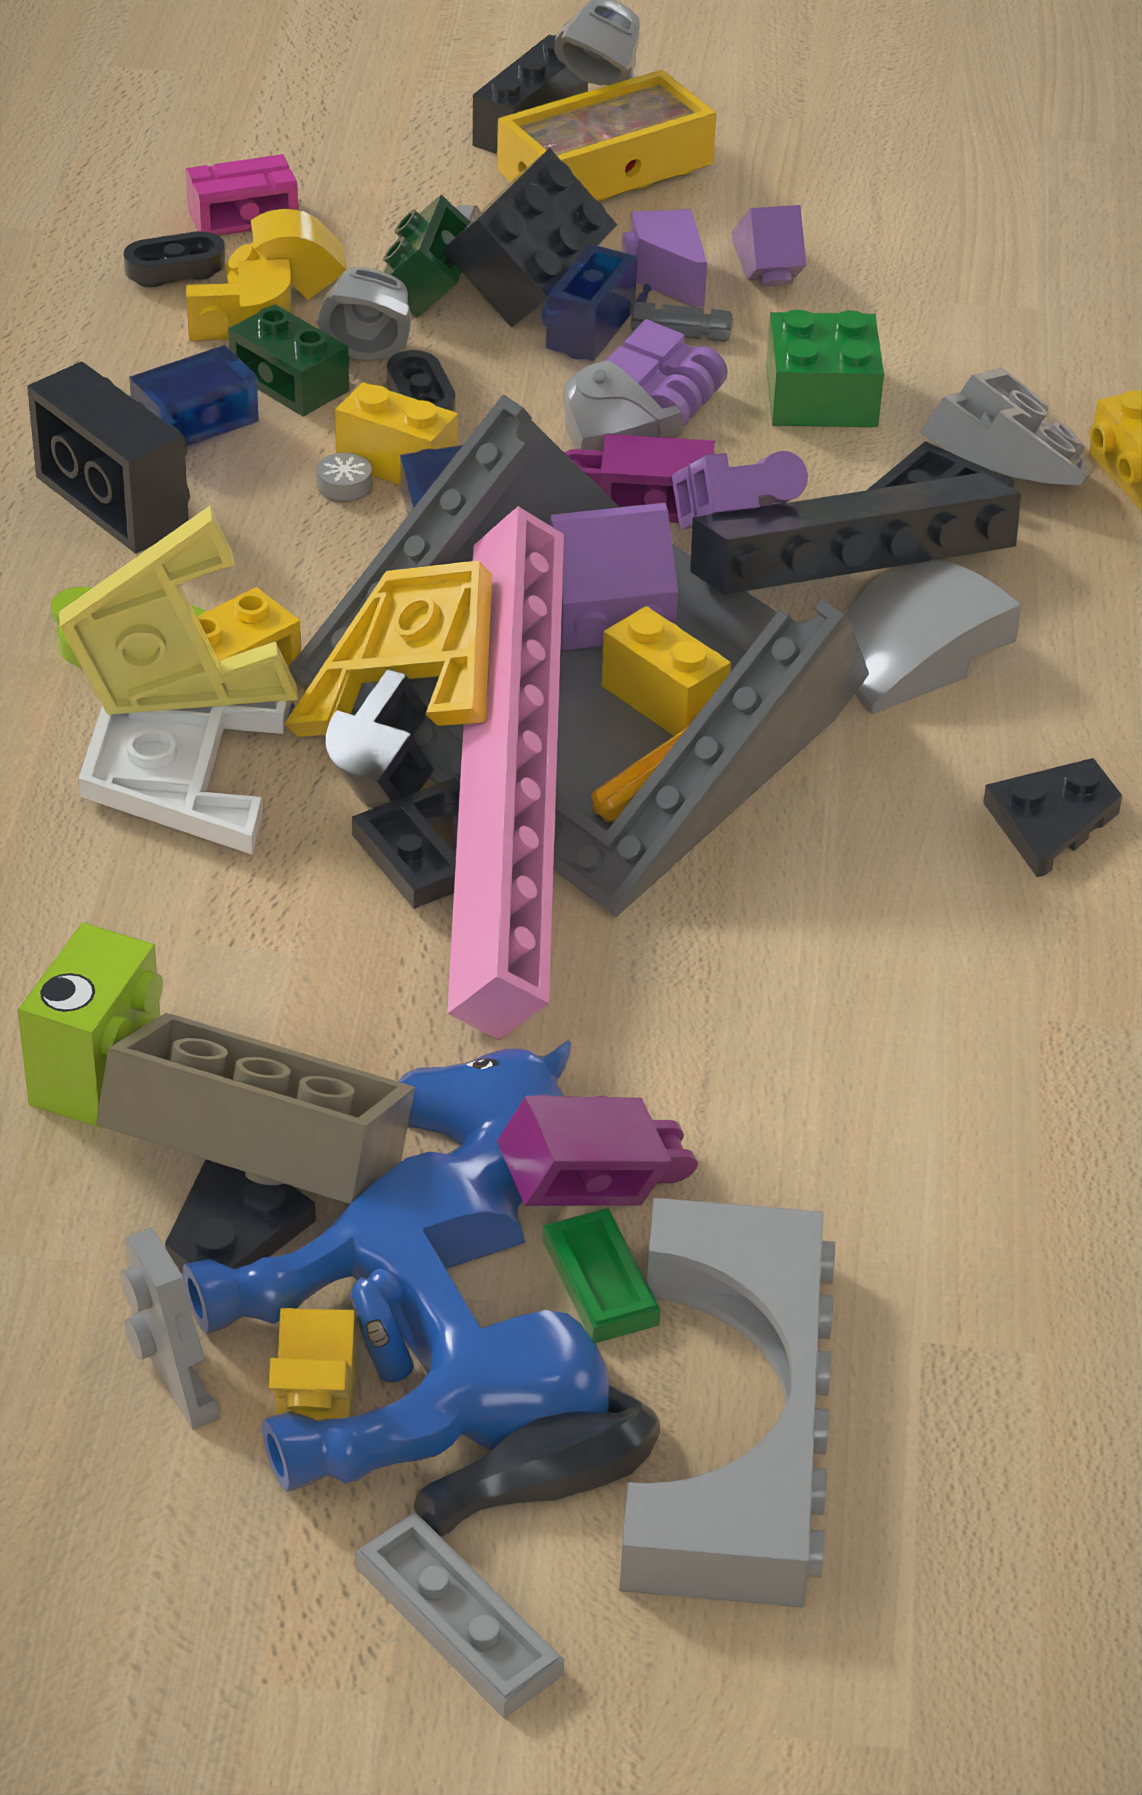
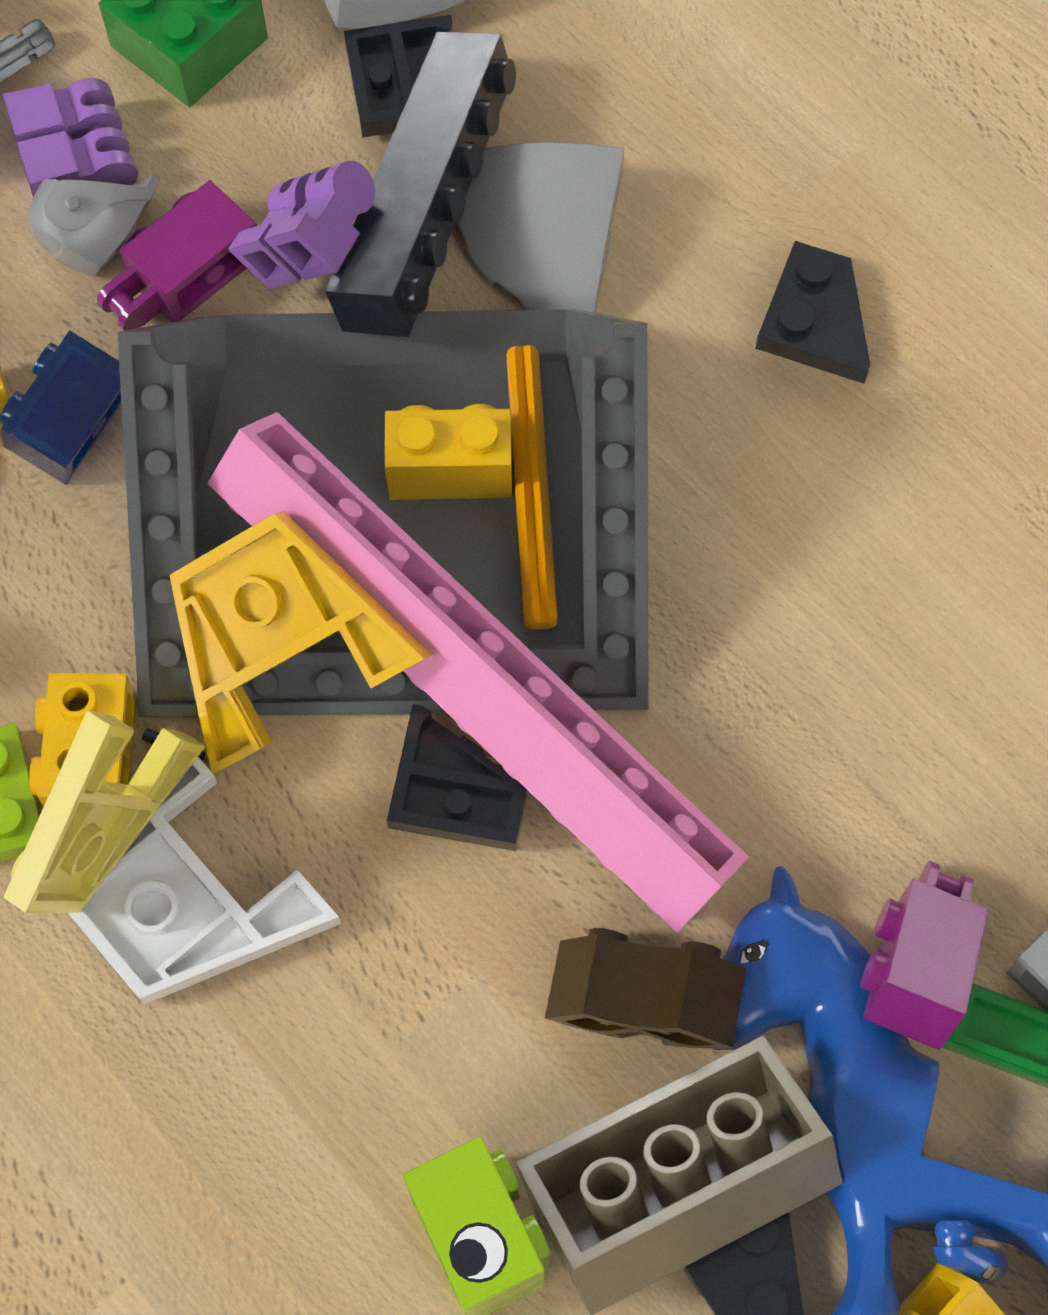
camera: 45 degrees left, 25 degrees up
(377, 744) = (325, 750): black brick -> none
(381, 1019) = (666, 993): none -> dark brown brick
(614, 568) = (321, 388): medium lavender slope -> none

